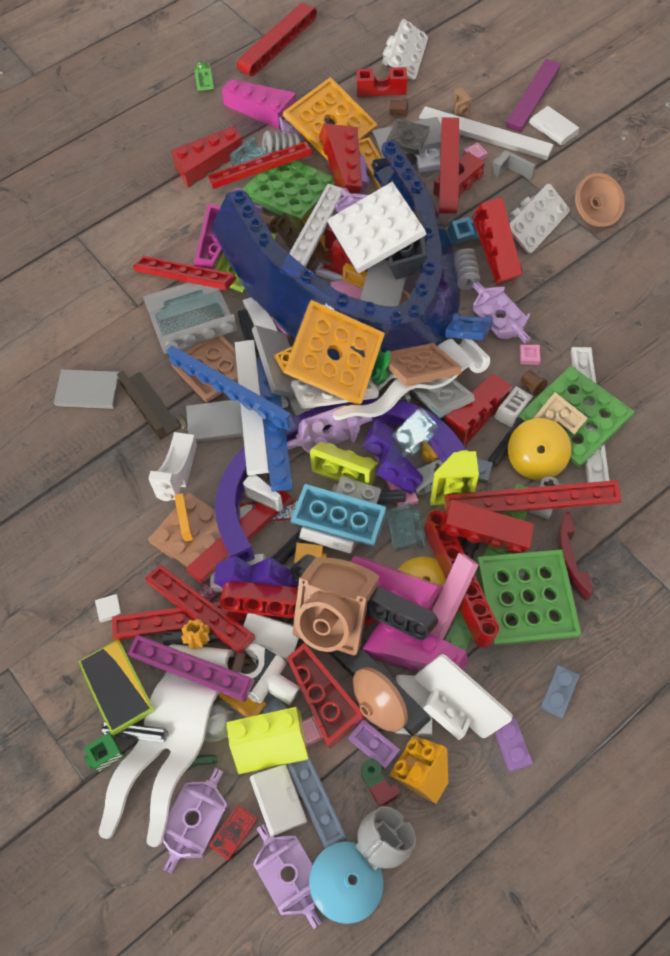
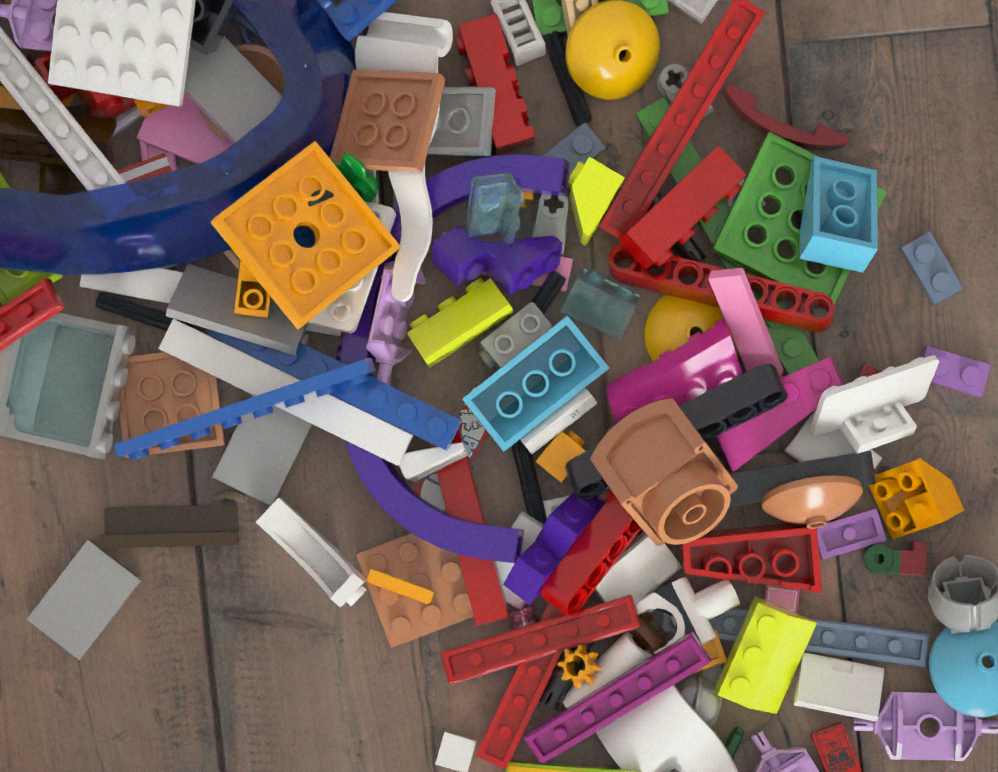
camera: 60 degrees left, 25 degrees up
(547, 611) = (839, 215): none -> medium azure slope

